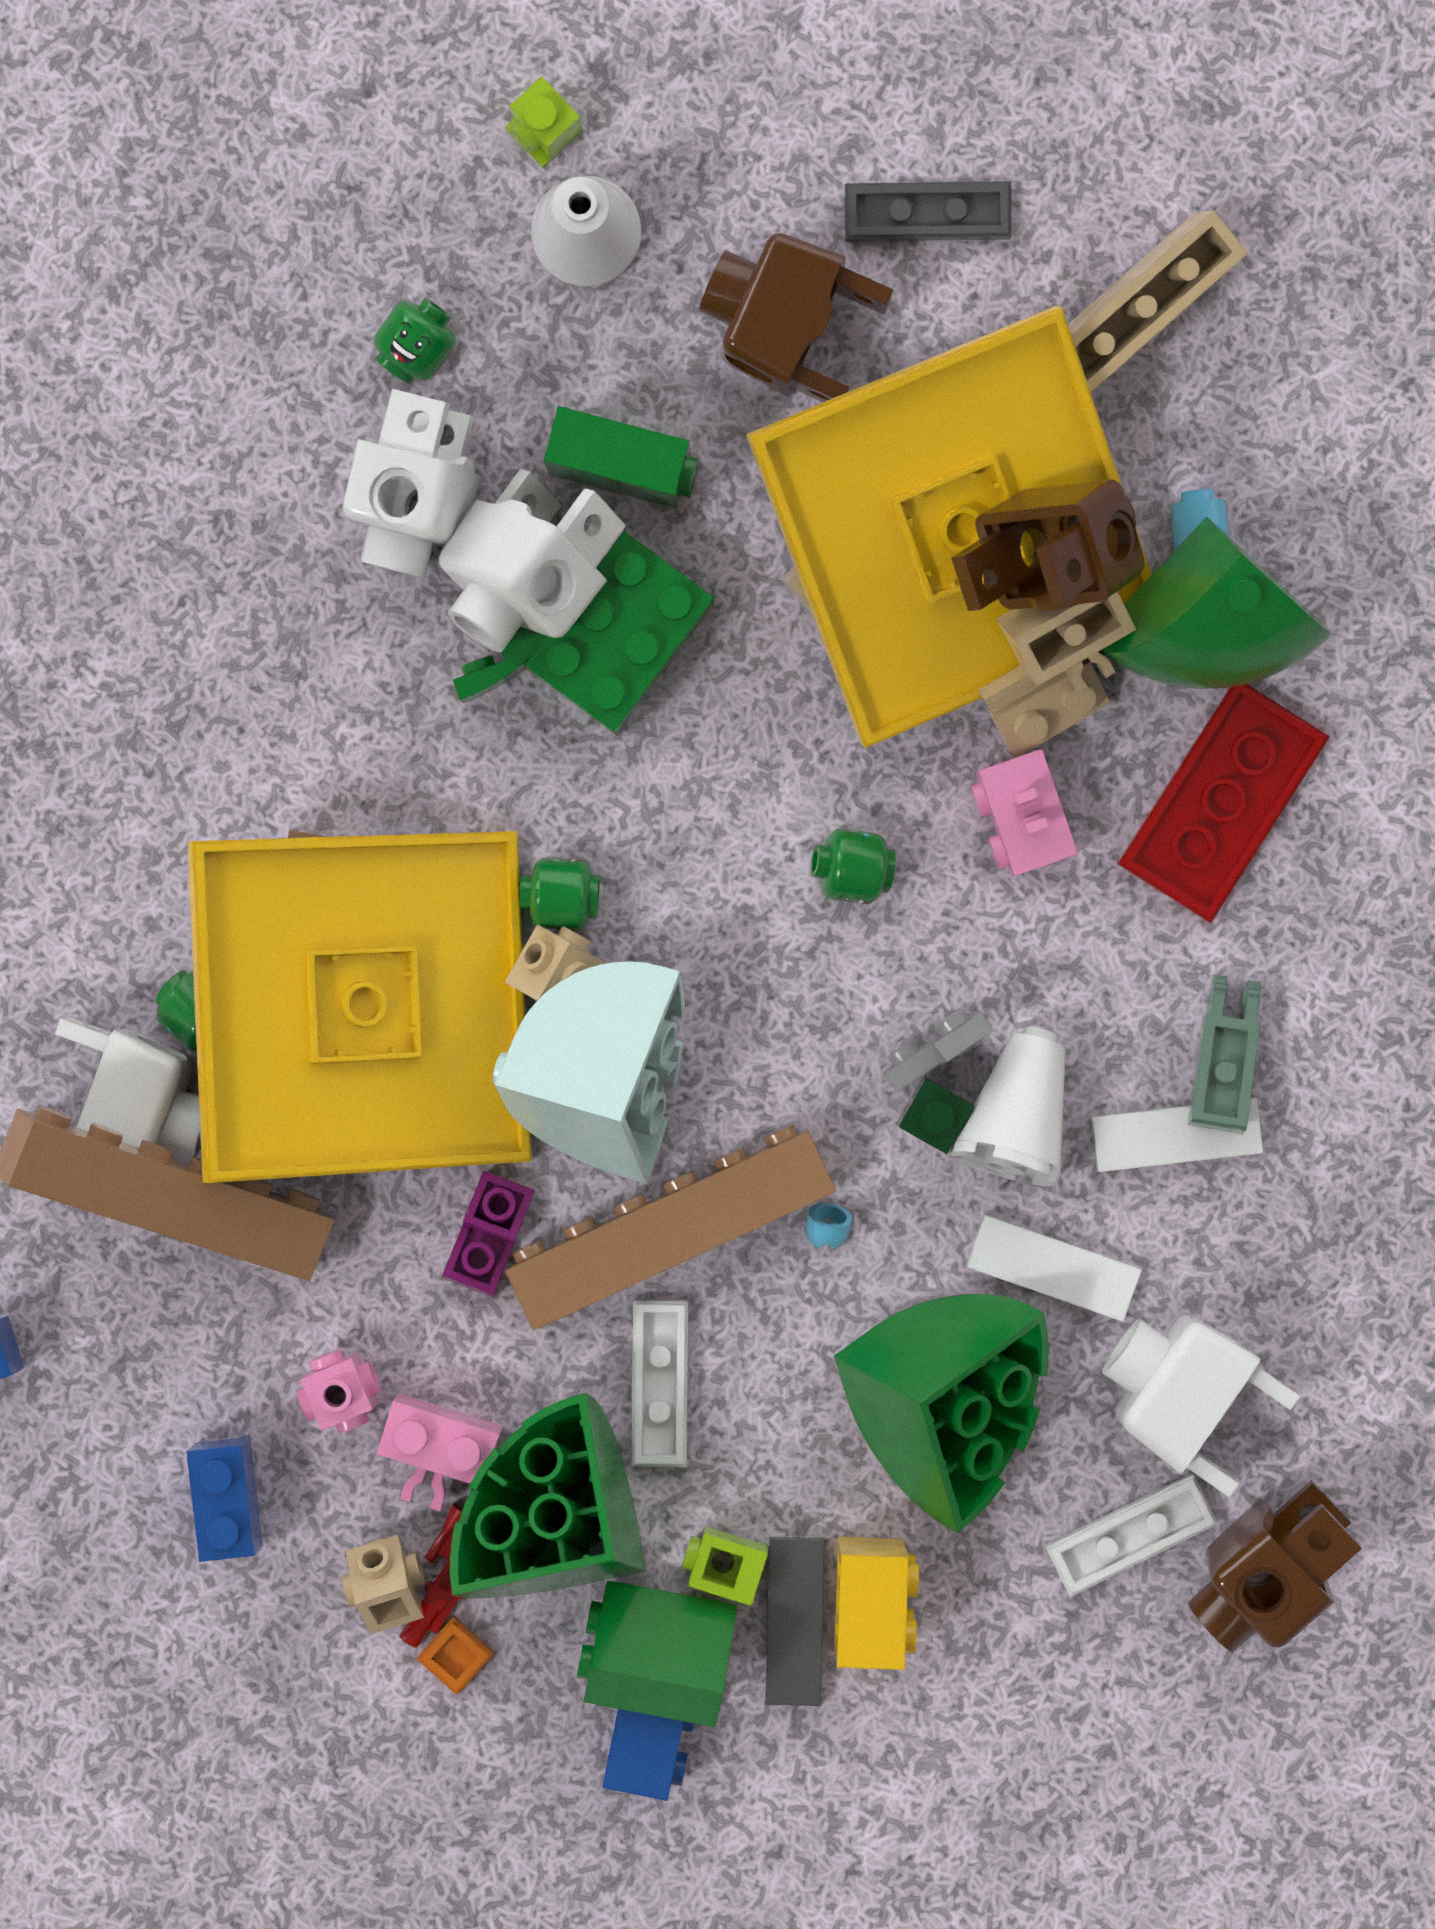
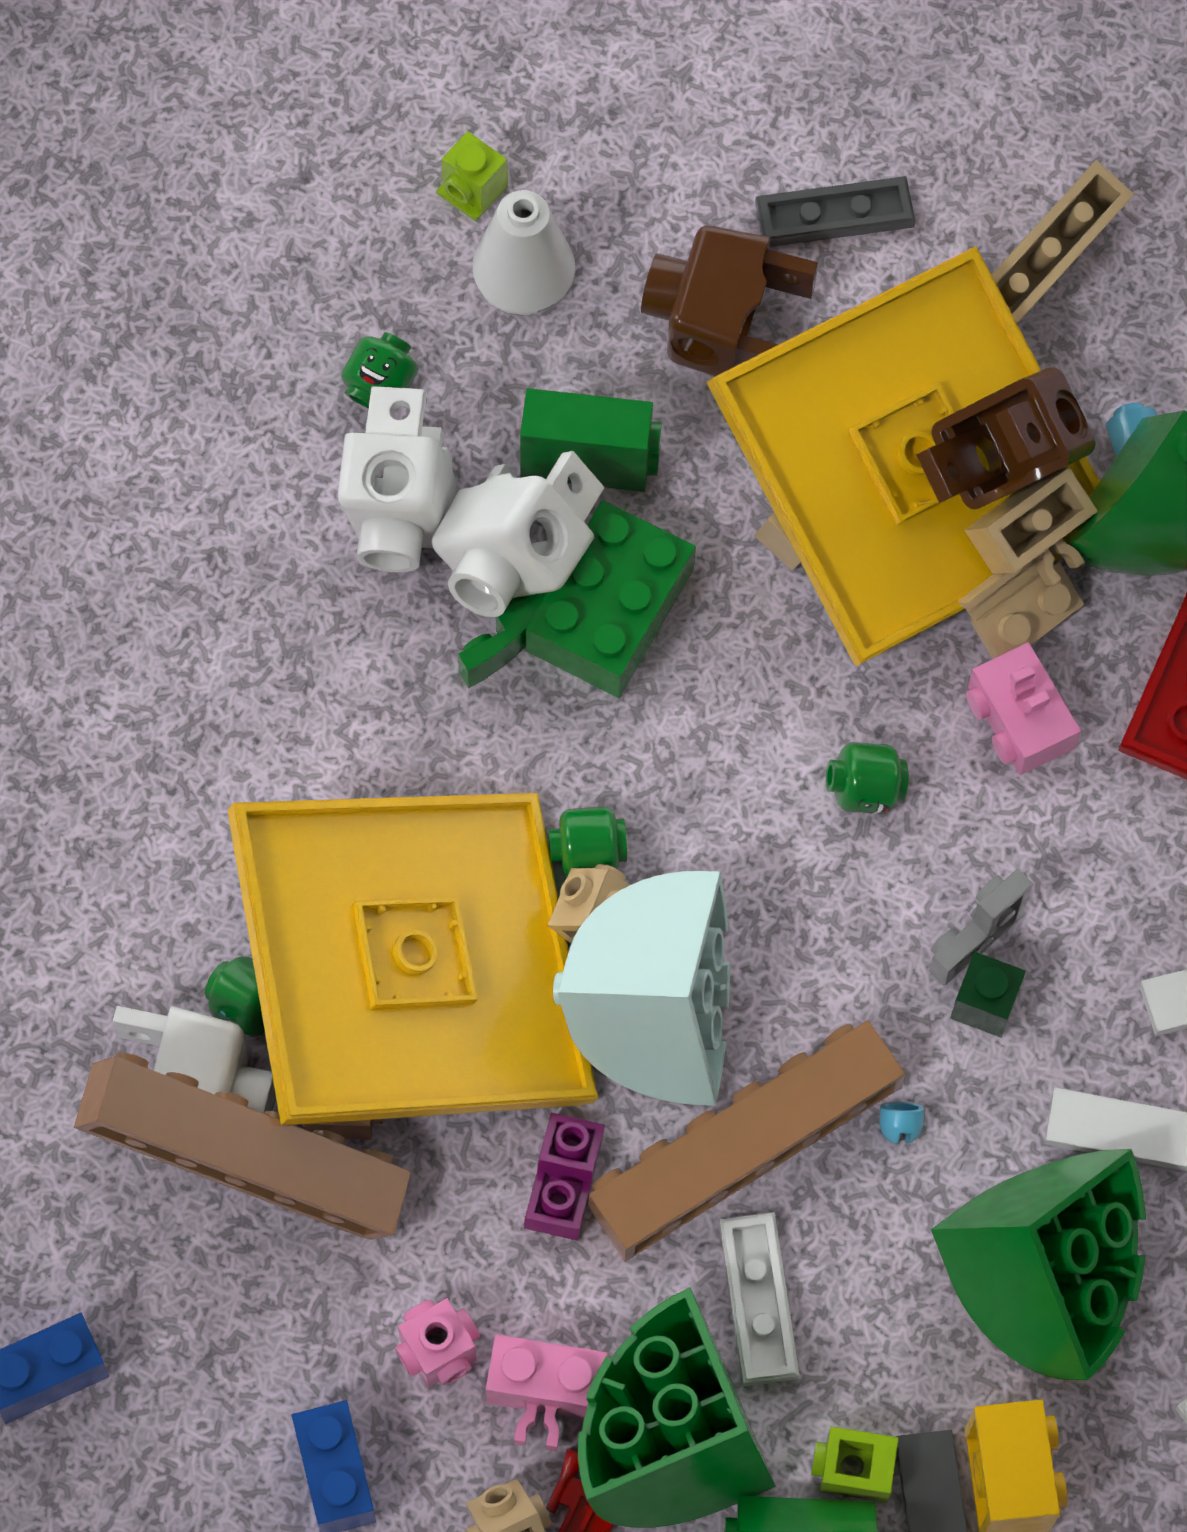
camera: 10 degrees left, 20 degrees down
(1019, 1112) = (1069, 985): white cone -> none

